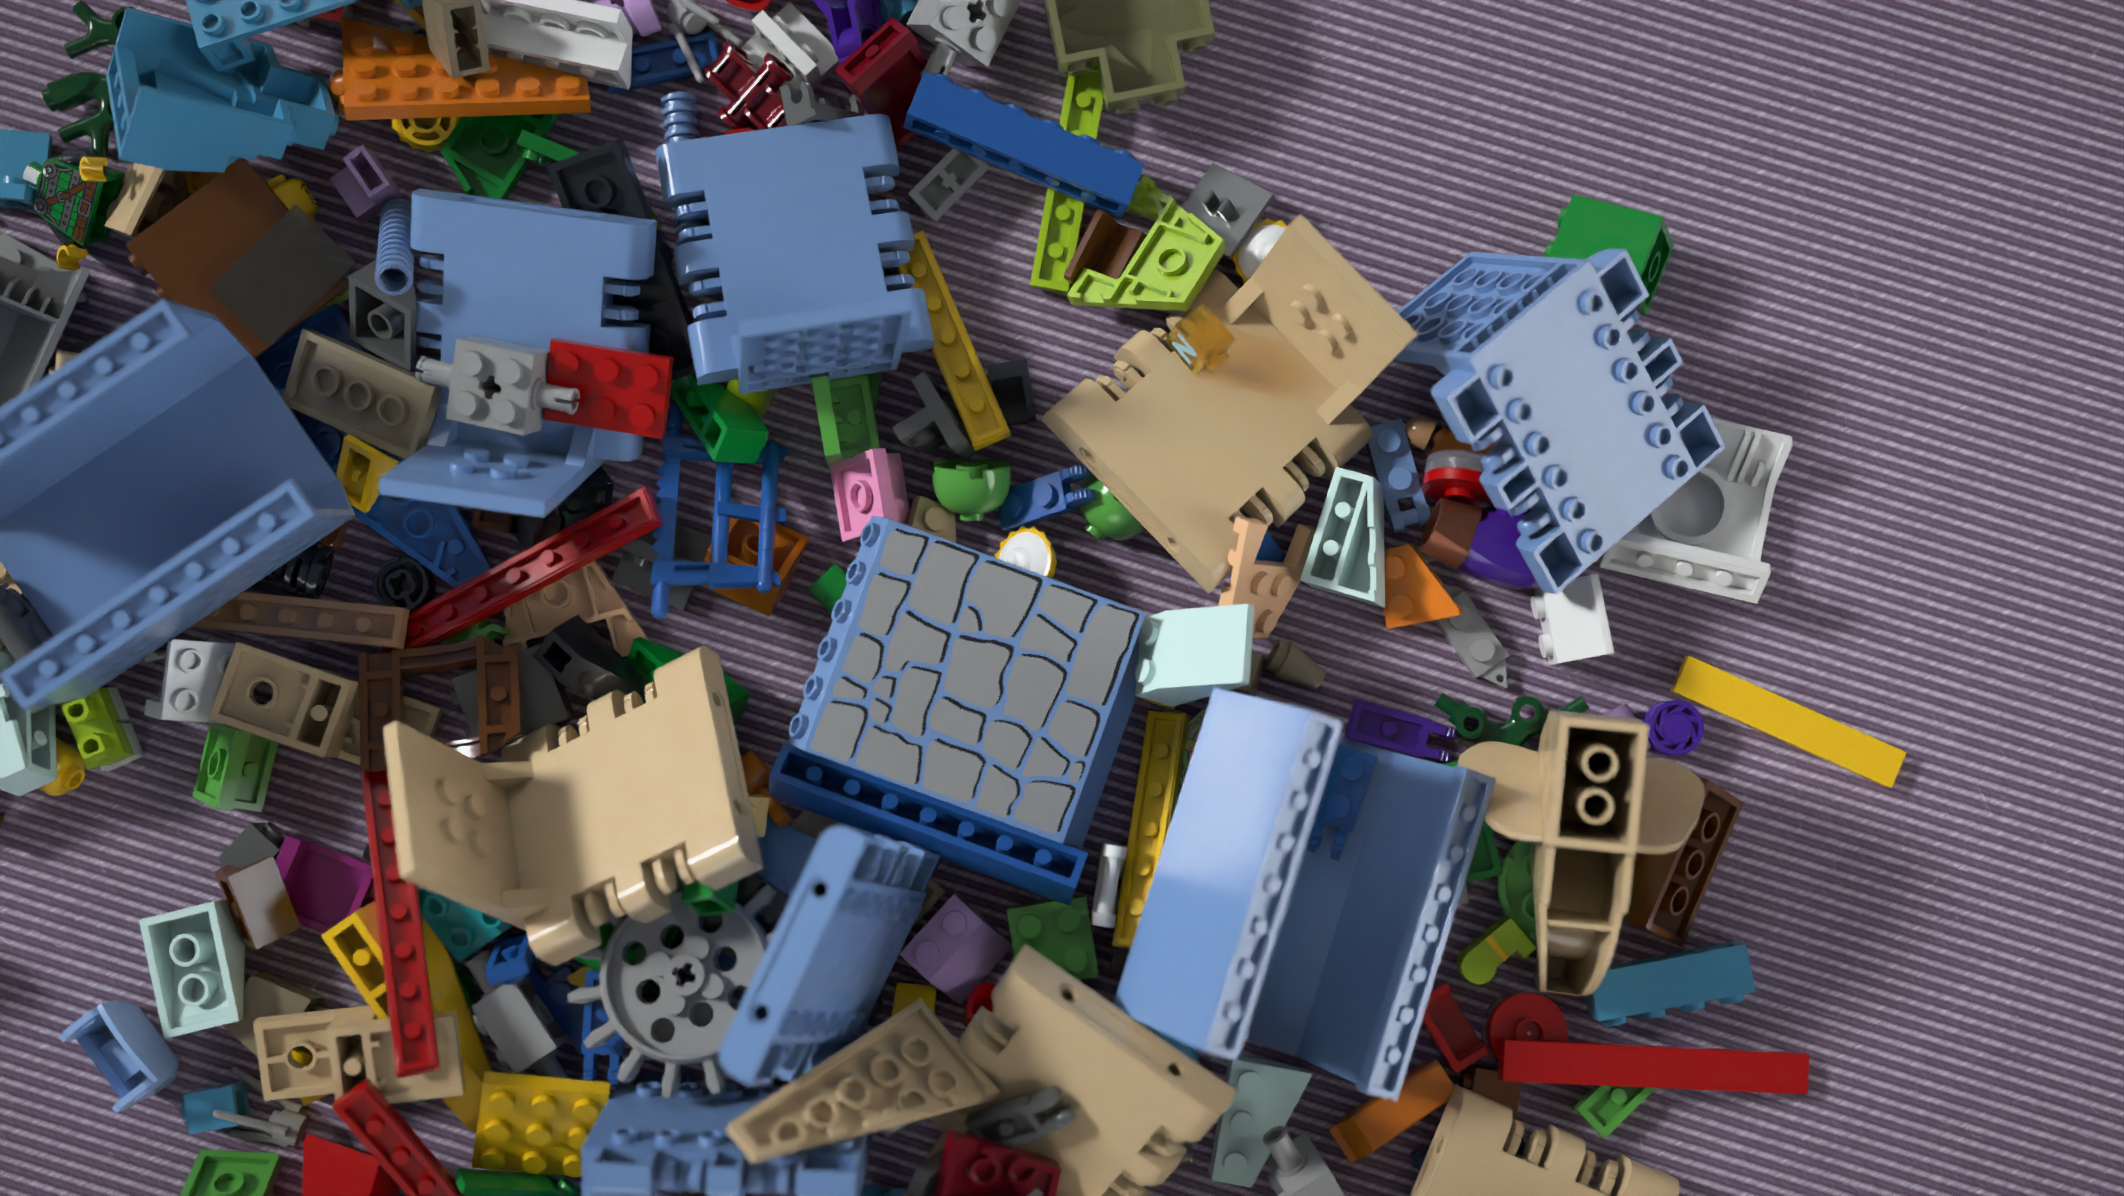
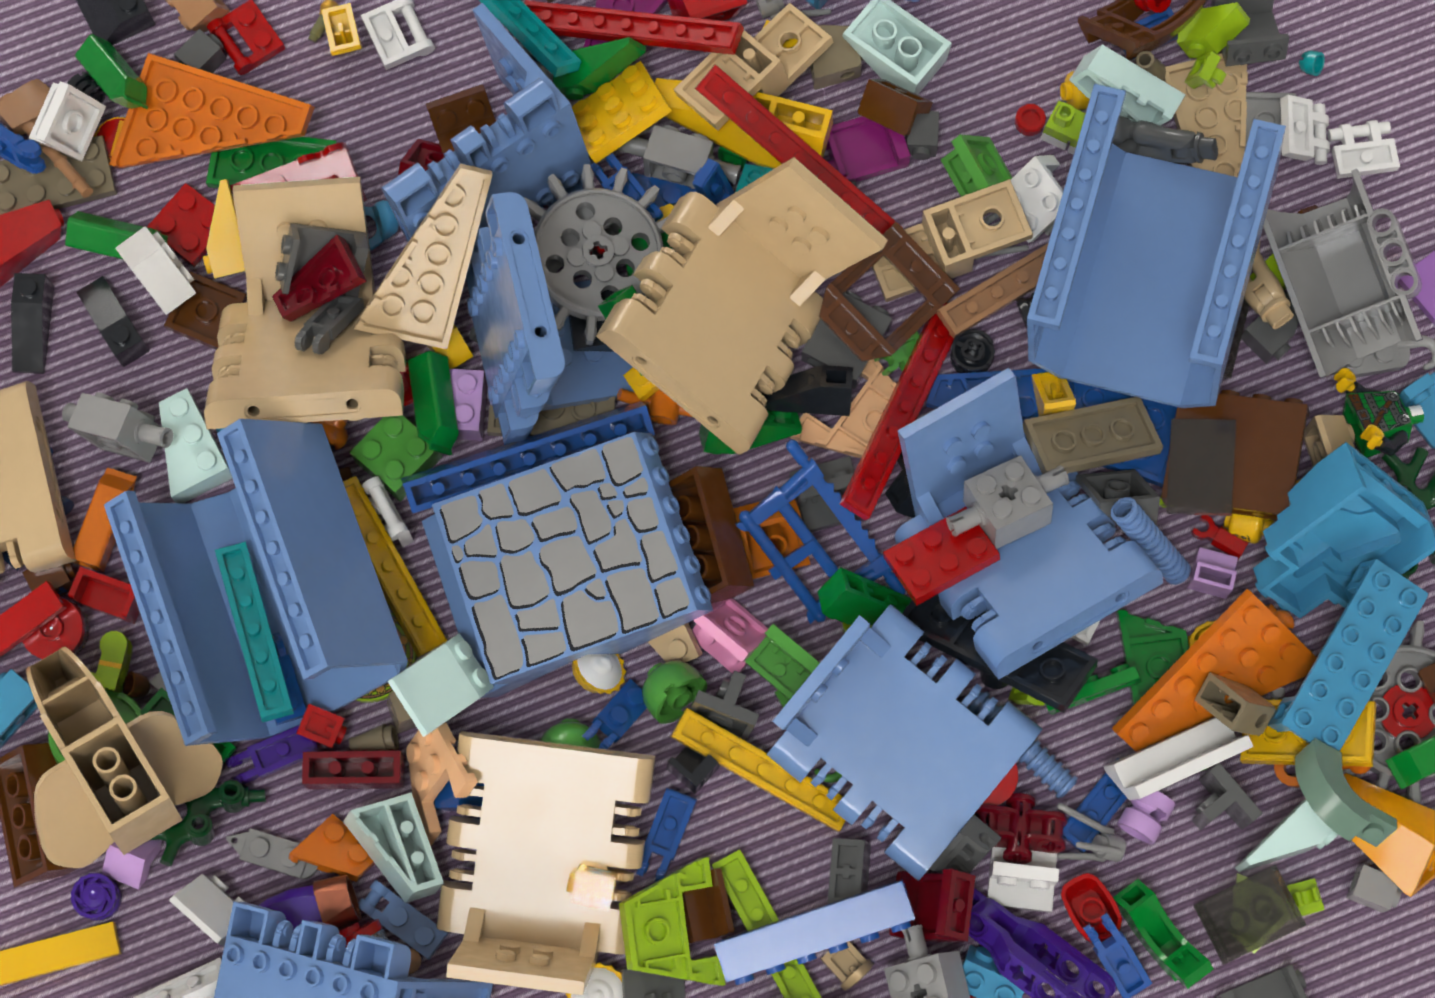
camera: 145 degrees right, 10 degrees down
(136, 782) = (1030, 119): none -> red tile
(328, 208) = (1220, 538): none -> red bar
(805, 601) = (712, 531): none -> reddish brown slope
(975, 958) = (433, 401): none -> green piece
(1016, 90) = (847, 966): none -> tan tile
(1080, 358) = (667, 830): none -> blue hinge
(1333, 863) = (254, 632): none -> teal plate
(1337, 650) = (353, 770): none -> dark red brick
(1339, 707) = (321, 726): none -> red bracket
(1484, 910) = (136, 685): none -> reddish brown hinge

